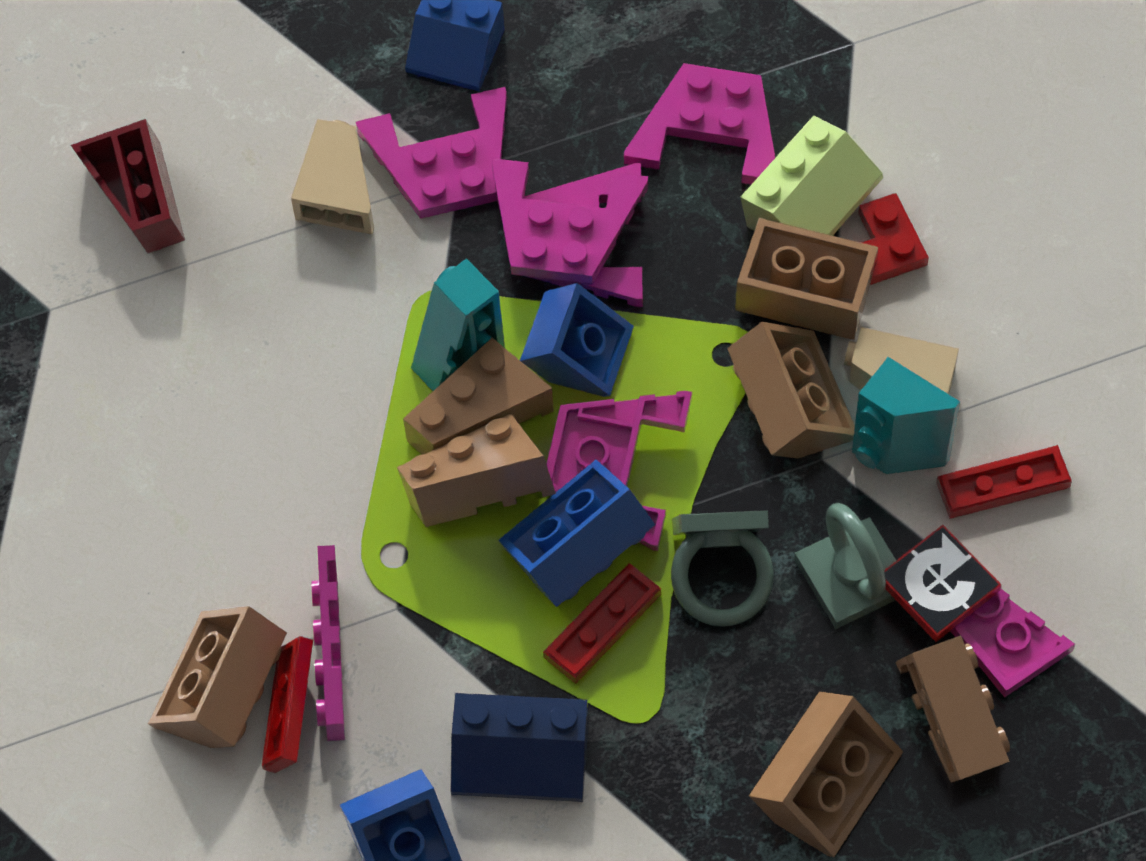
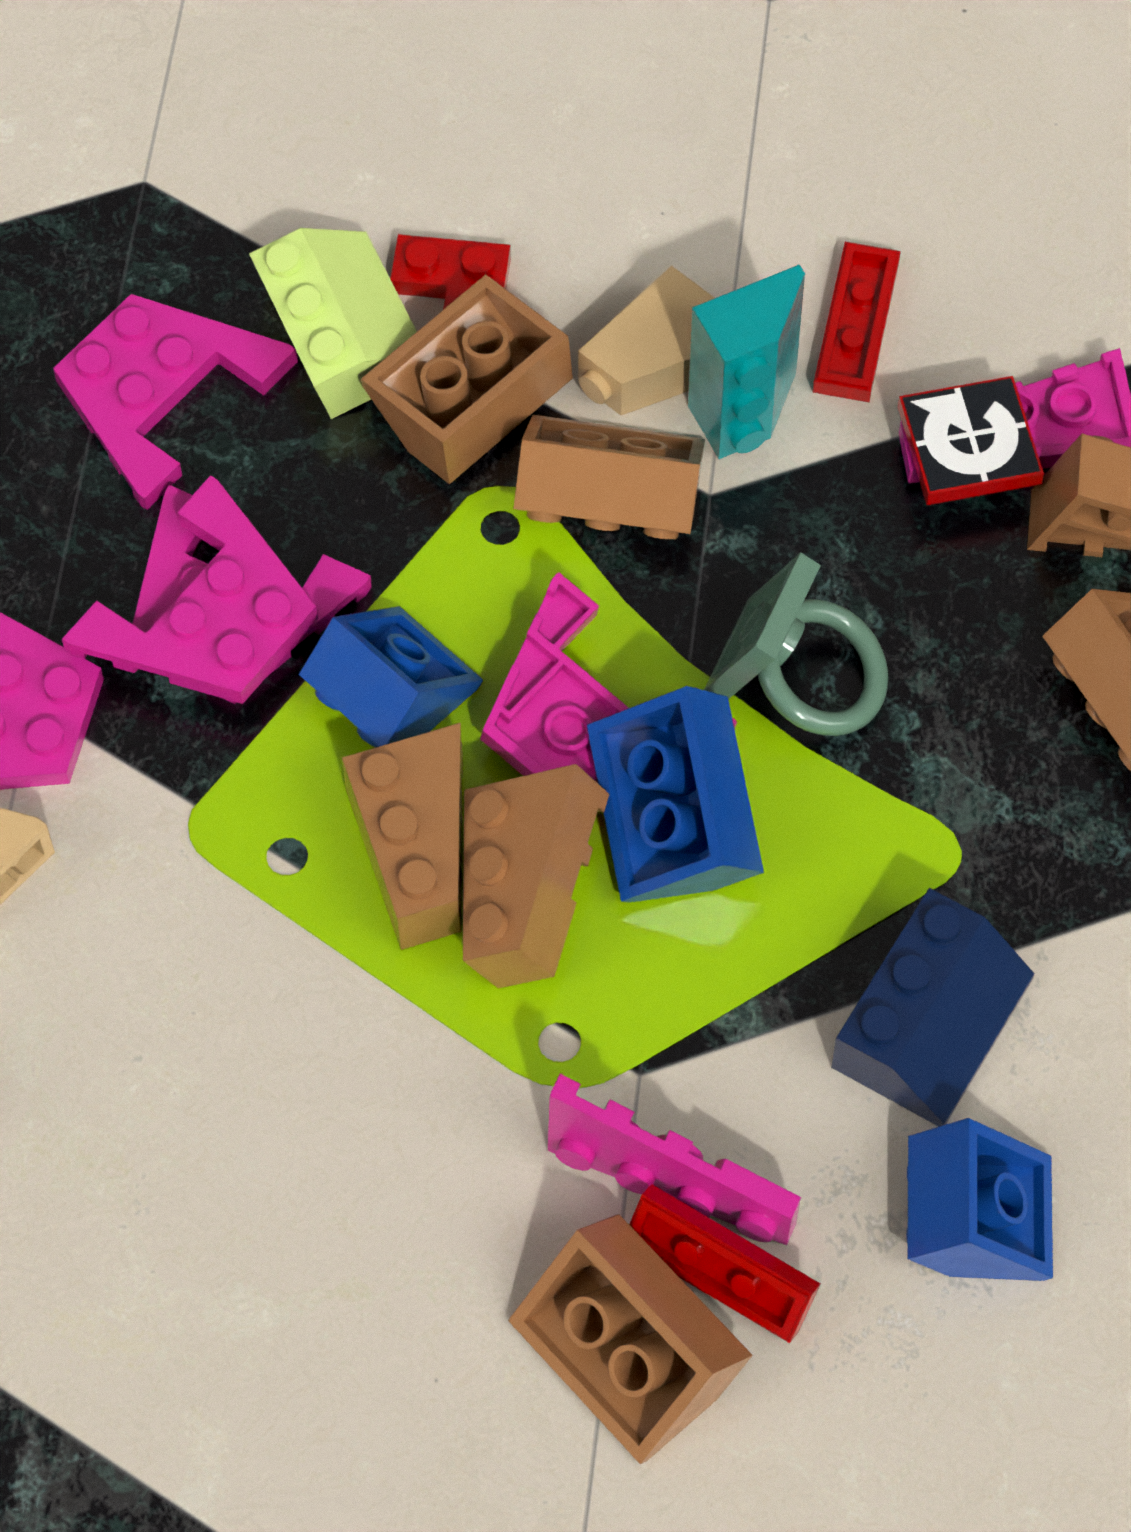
camera: 65 degrees left, 0 degrees up
(457, 323) = (306, 789): teal wedge -> none
(602, 623) = (804, 838): red tile -> none
(847, 567) = (883, 528): sand green tile -> none

